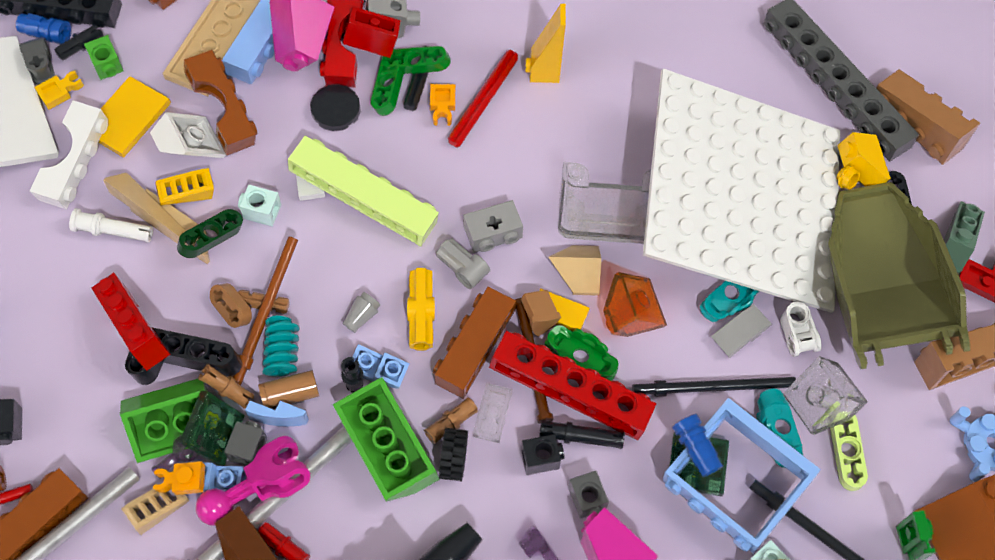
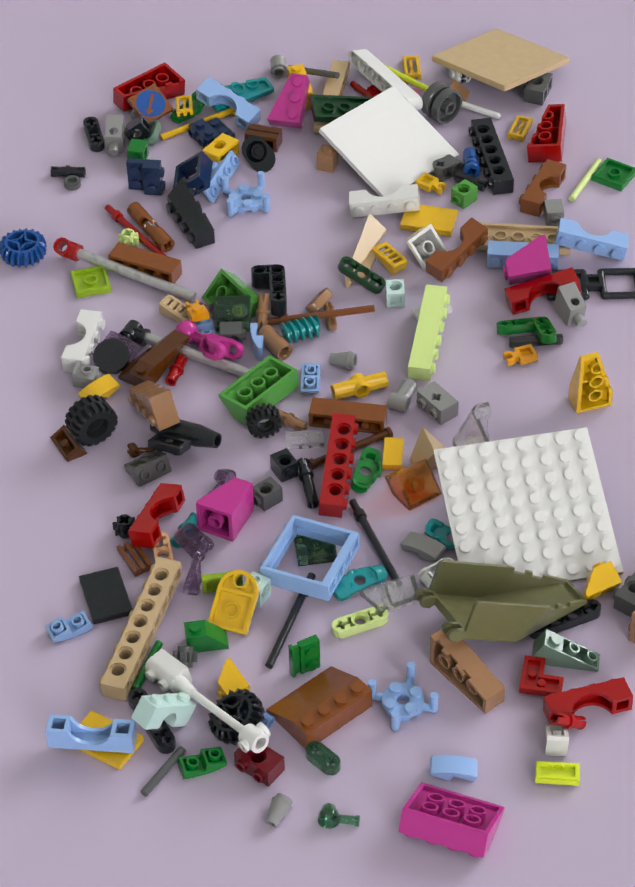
camera: 75 degrees right, 20 degrees down
(99, 224) = (345, 230): white pin -> none
(130, 322) = (270, 259): red arch -> none
(335, 107) = (489, 308): black tile -> none
(352, 374) = (294, 358): black pin -> none
(371, 32) = (547, 296): red brick -> none
(483, 98) = (531, 374): red axle -> none
(540, 311) = (383, 437): medium nougat tile -> none
(698, 445) = (320, 515): blue axle -> none
(848, 177) = (575, 580): yellow plate -> none

